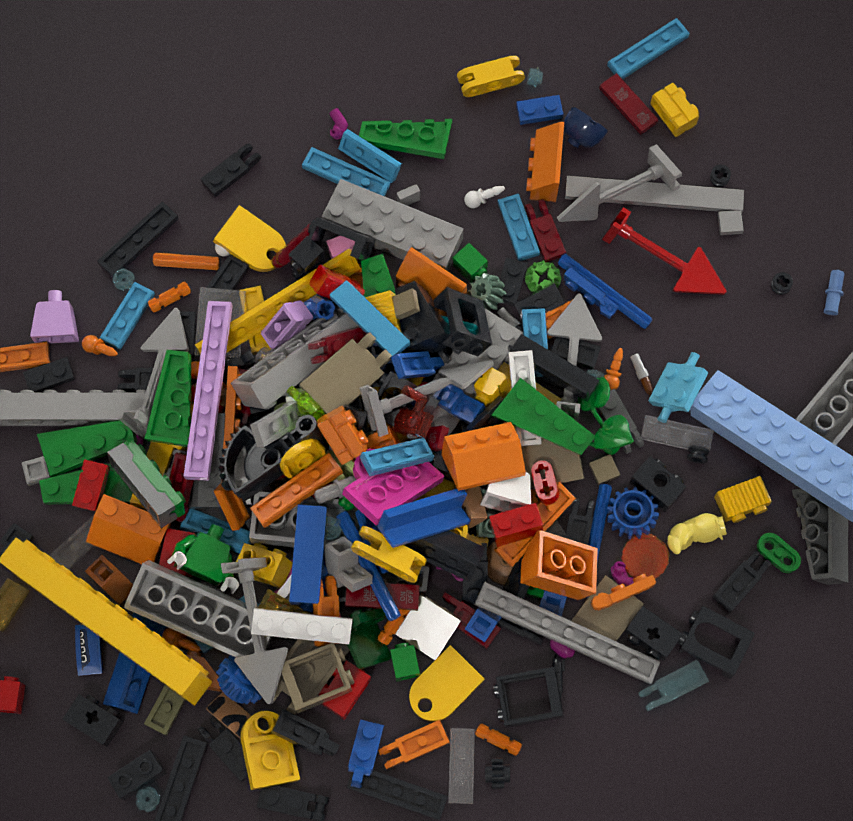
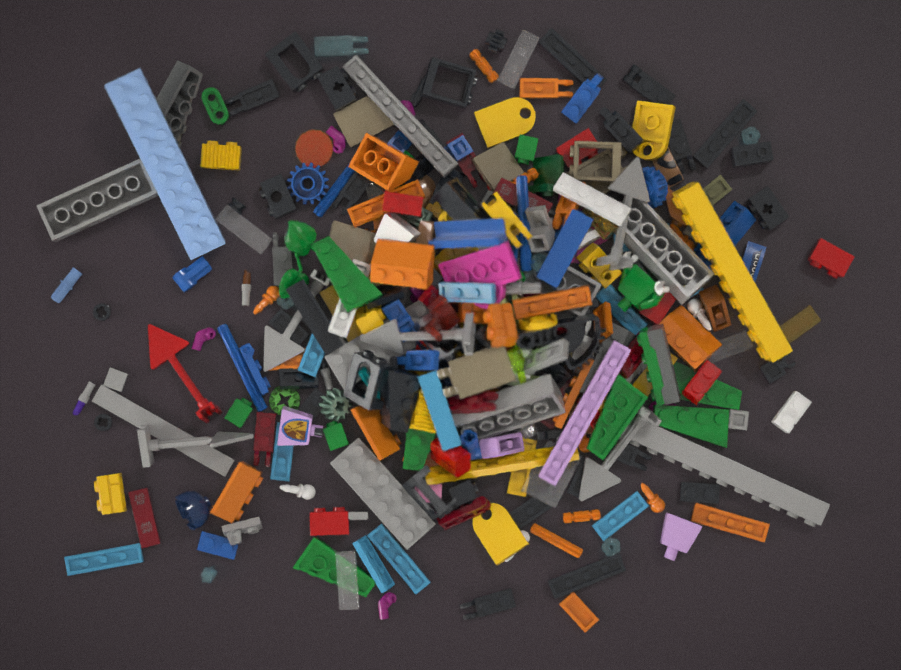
camera: 155 degrees left, 15 degrees up
(130, 202) = (579, 611): none -> orange tile
(130, 569) = (696, 308): none -> white bar
(389, 127) = (347, 580): none -> clear tile
(406, 304) = (406, 410): dark tan tile -> none
(435, 176) = (329, 522): none -> red brick
(490, 76) = (244, 590): yellow piece -> none
(516, 249) = (297, 427): none -> torso
(529, 124) = (234, 530): none -> light grey hinge
(549, 481) = (369, 229): beam -> none
(584, 243) = (239, 412): none -> green brick
(604, 469) = (315, 223): dark tan tile -> none
(622, 593) = (346, 126): orange hinge -> none
(663, 304) = (202, 336): none -> magenta arm
(678, 387) = (226, 262): medium azure plate -> none
(701, 529) = (264, 149): light yellow animal -> none
(710, 357) = (188, 277): none -> blue piece
(753, 191) = (84, 397): none -> light grey piece

